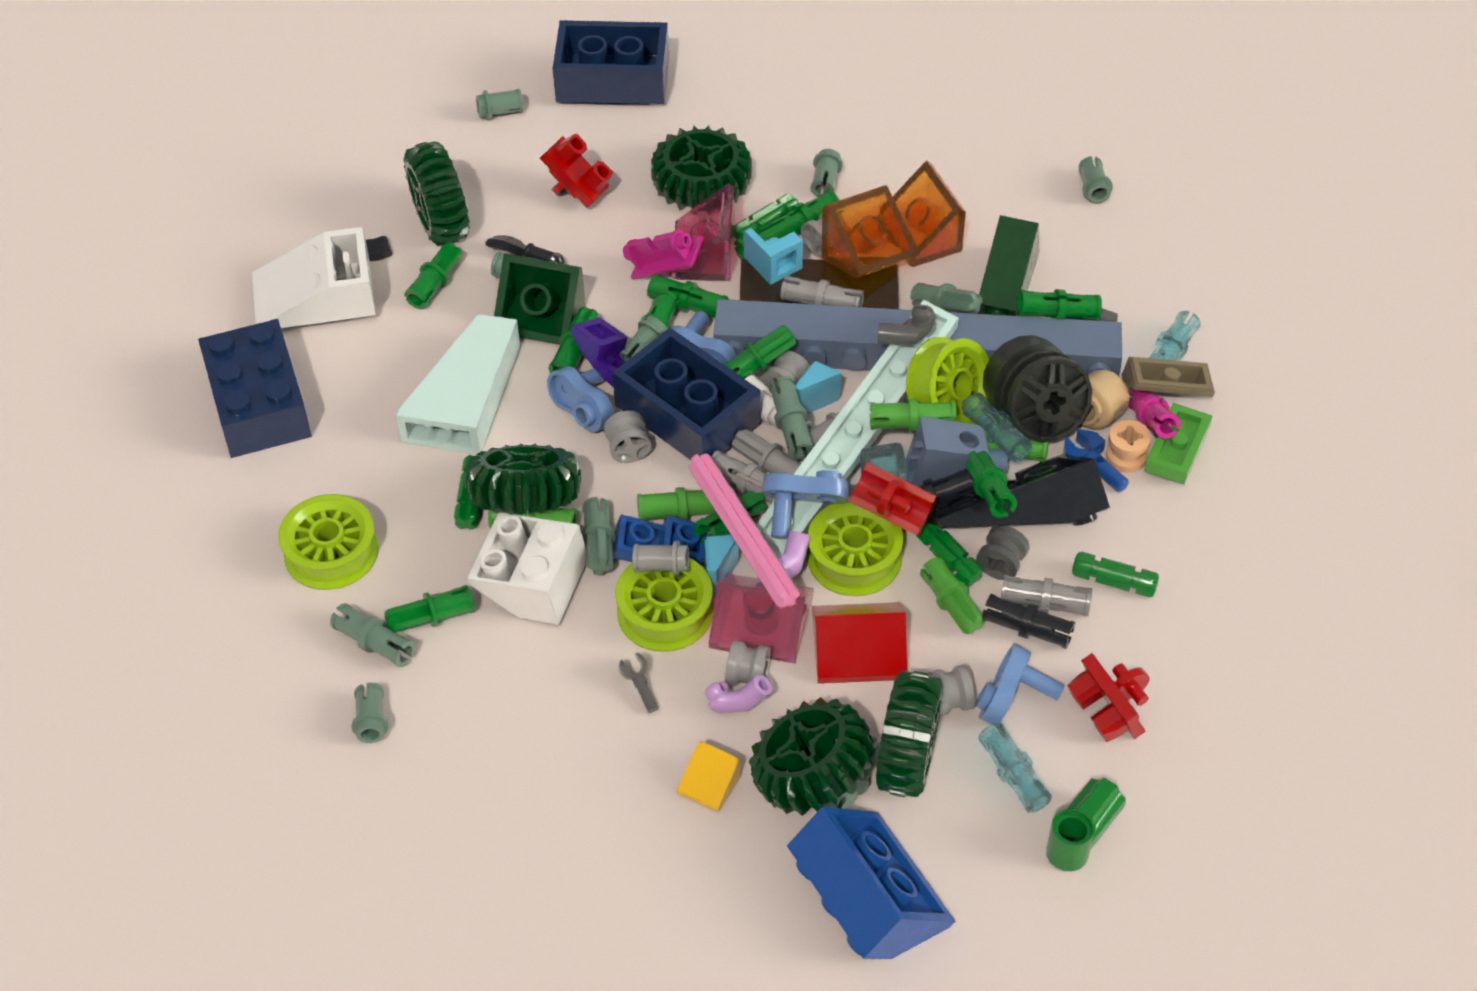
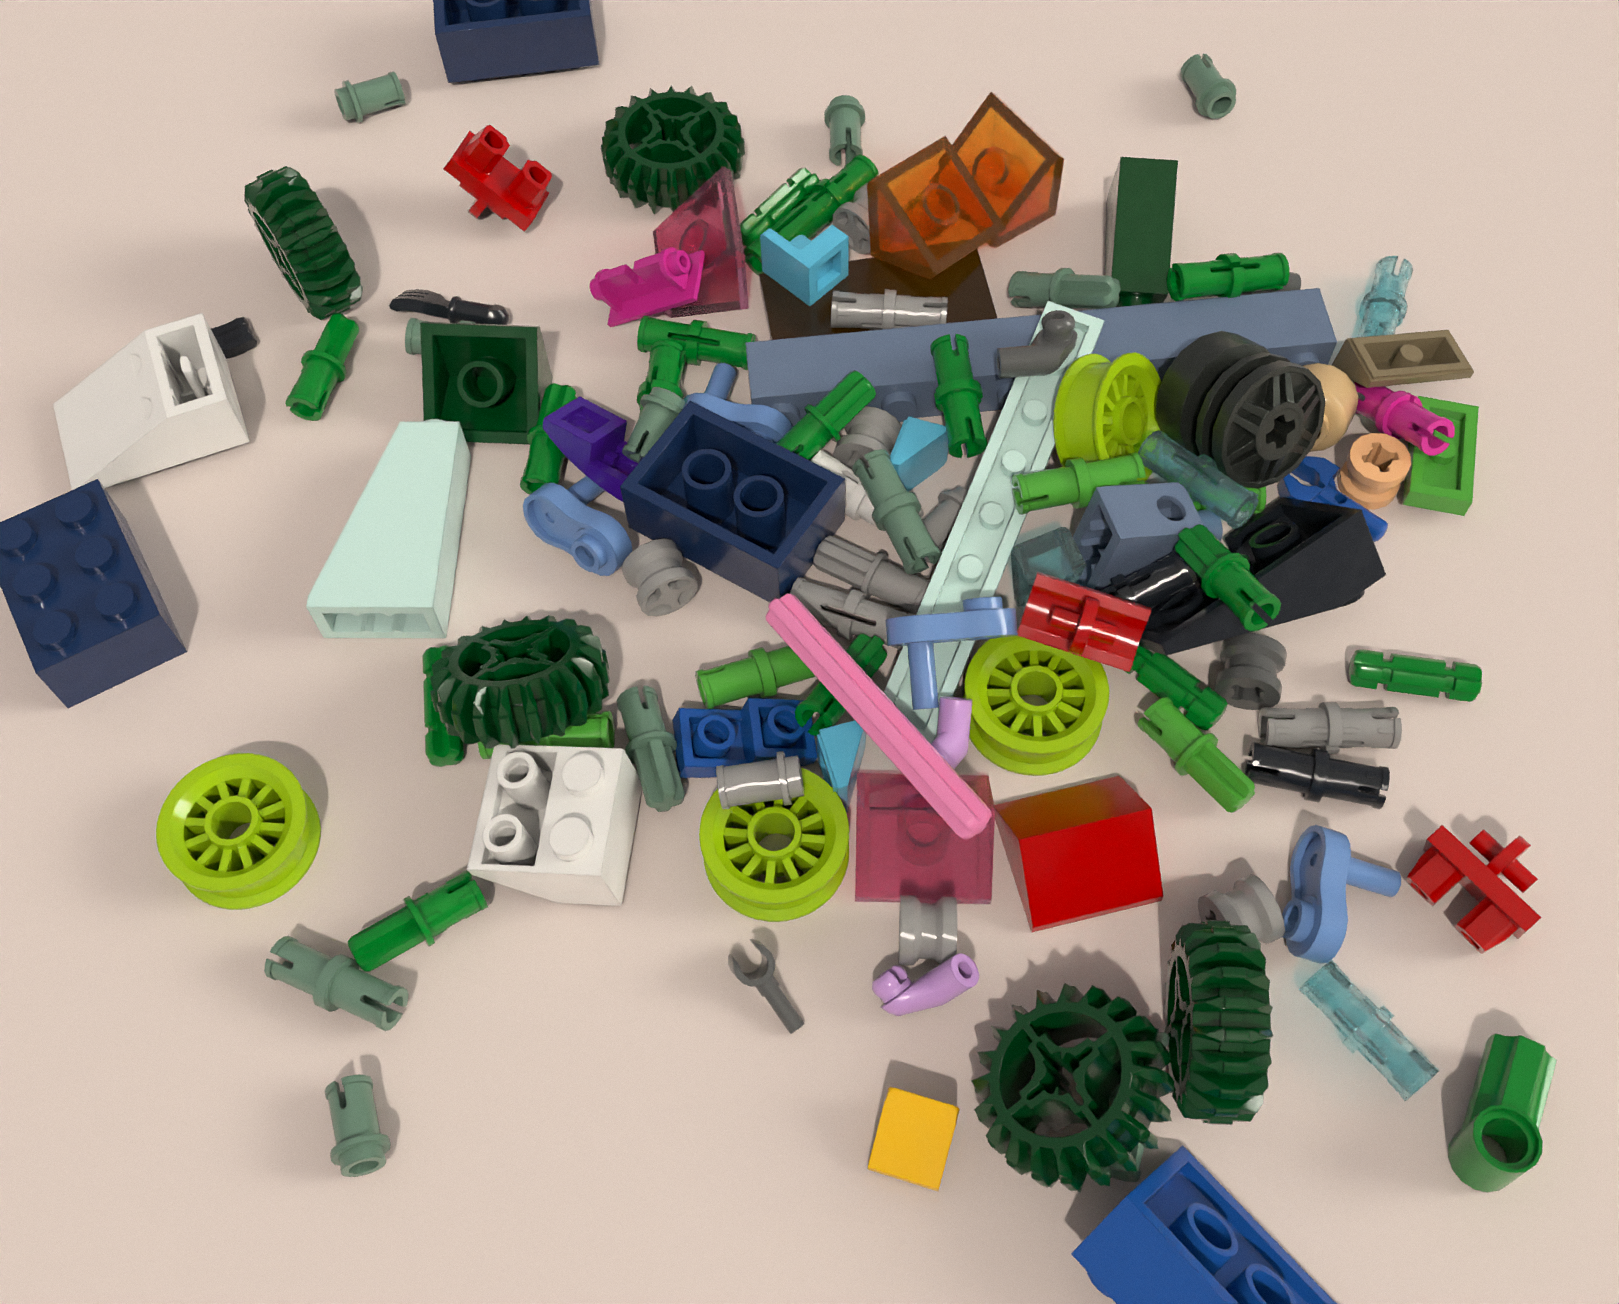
camera: 10 degrees left, 10 degrees up
(850, 351) = (958, 396): none -> green pin

